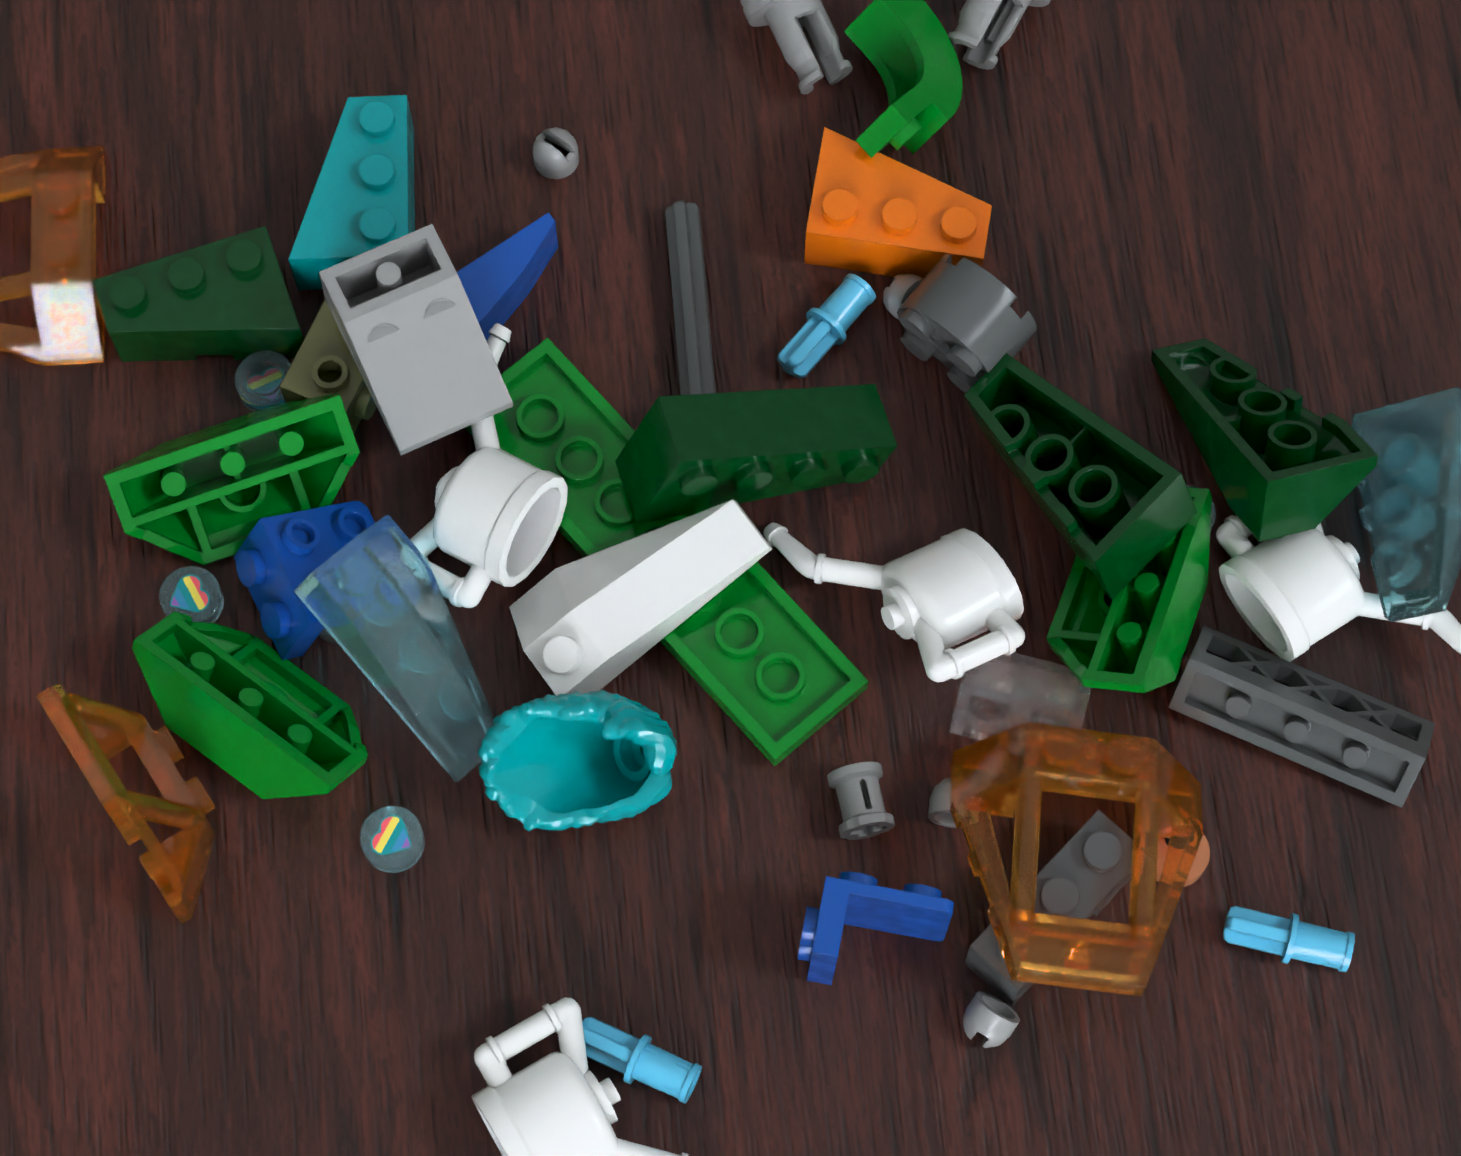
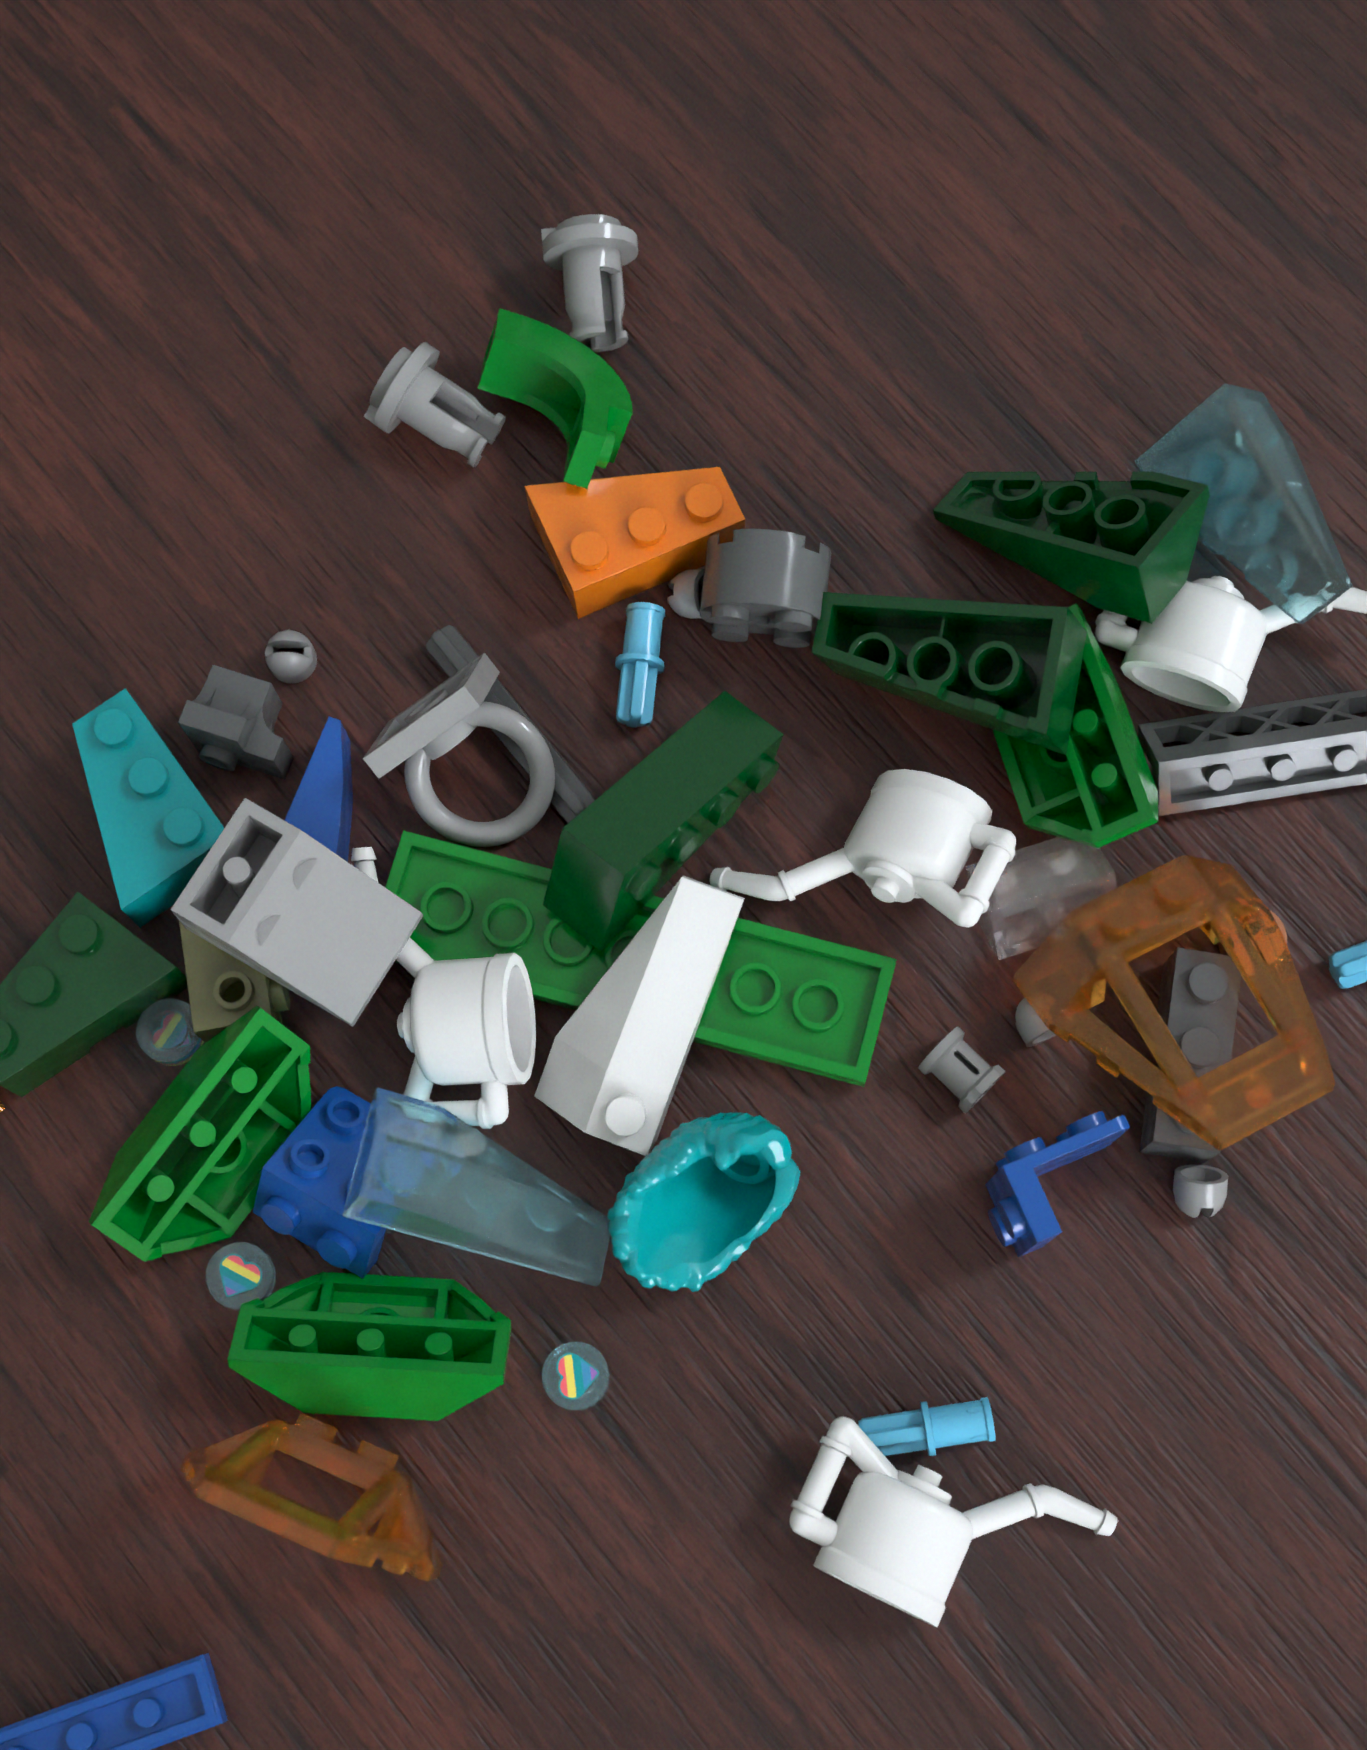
camera: 30 degrees left, 5 degrees up
(476, 177) = (235, 724): none -> dark grey brick
(632, 270) = (438, 725): none -> light grey tile

